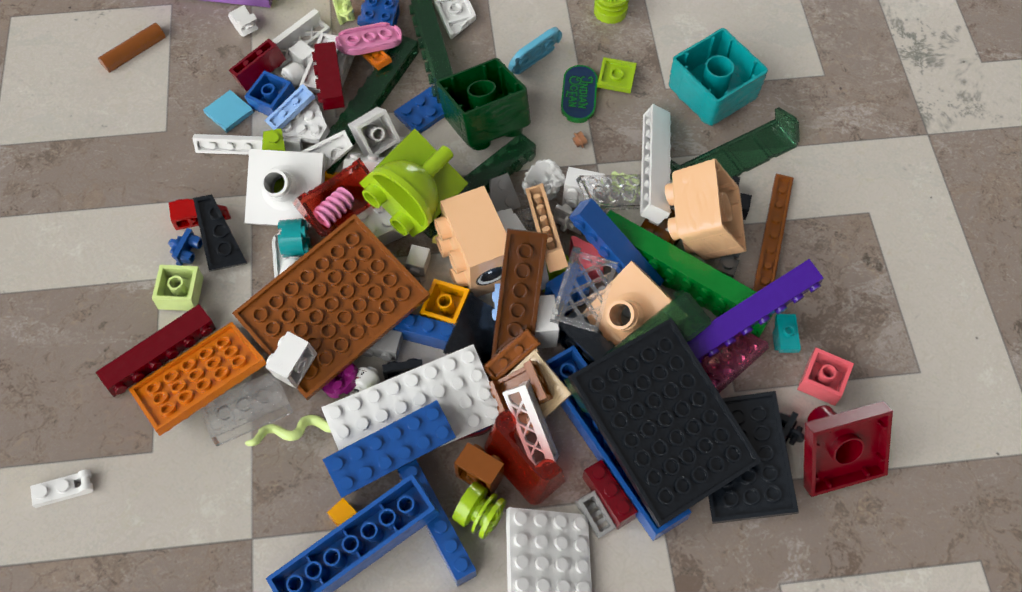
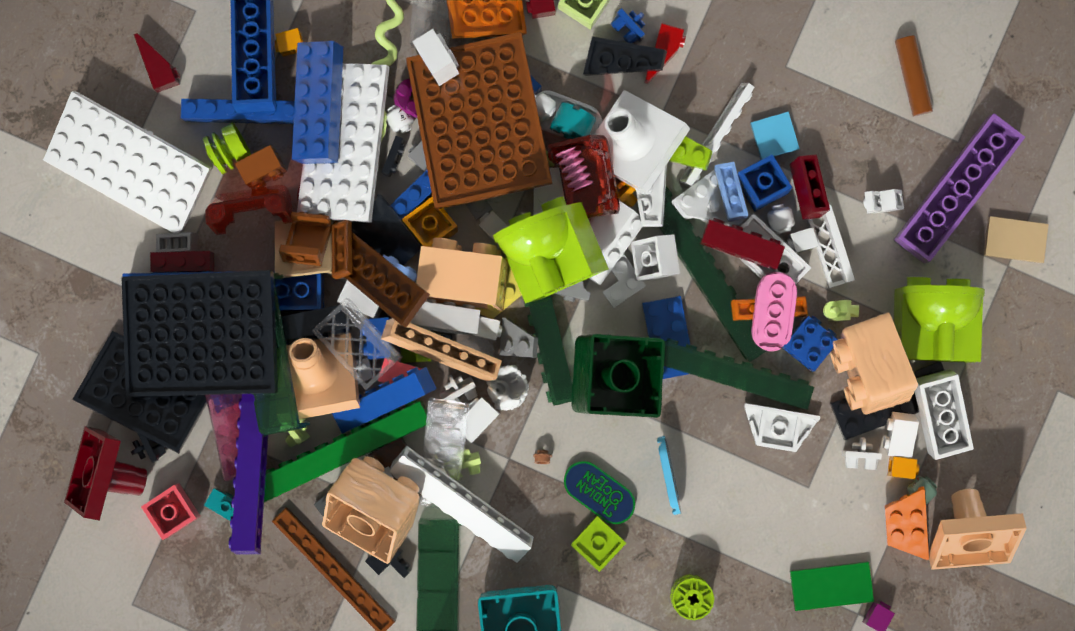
camera: 125 degrees right, 25 degrees up
(536, 418) = (267, 234): fence -> none

